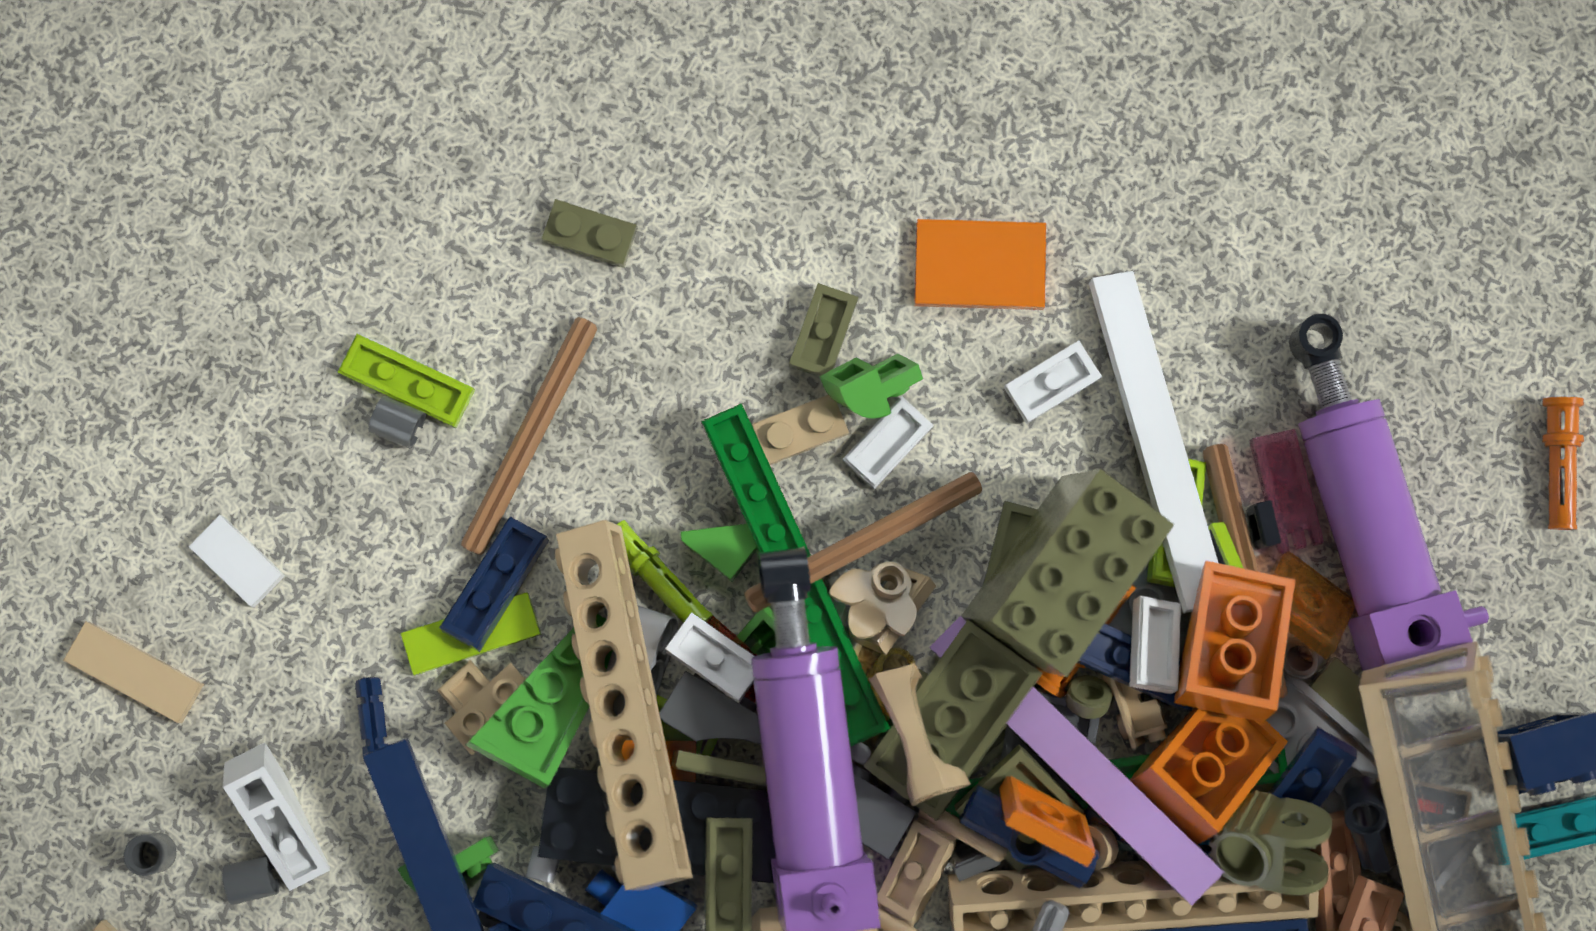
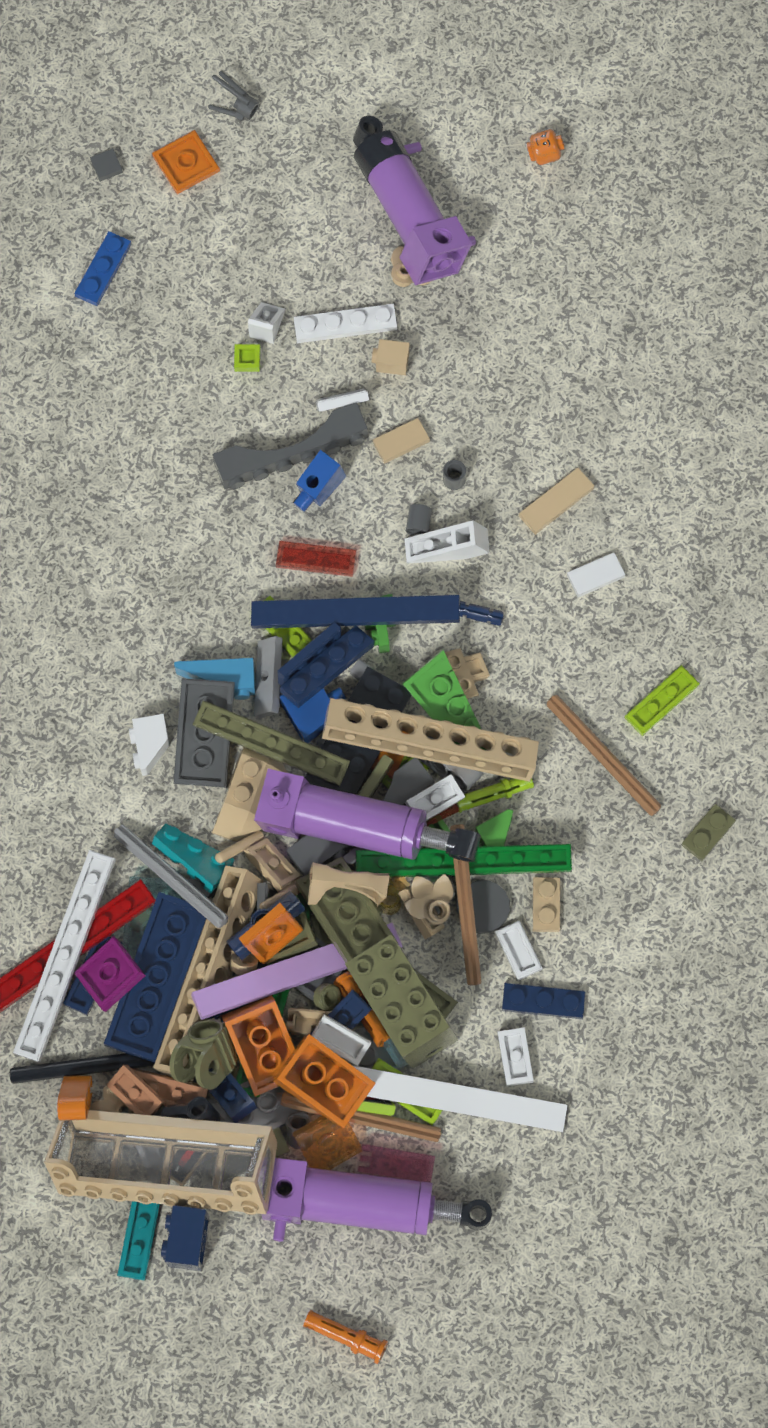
camera: 115 degrees right, 10 degrees down
(396, 422) = (639, 685): dark grey beam -> none
(432, 649) = (504, 682): lime tile -> none
(494, 584) = (526, 703): dark blue tile -> none
(823, 330) = (597, 939): olive plate -> none
(838, 511) = (490, 906): none -> dark grey tile
(867, 387) = (553, 943): bright green brick -> none
(949, 375) = (543, 1001): none -> dark blue plate
(980, 264) = (602, 1046): orange tile -> none
(1263, 525) = (382, 1140): black tile -> none

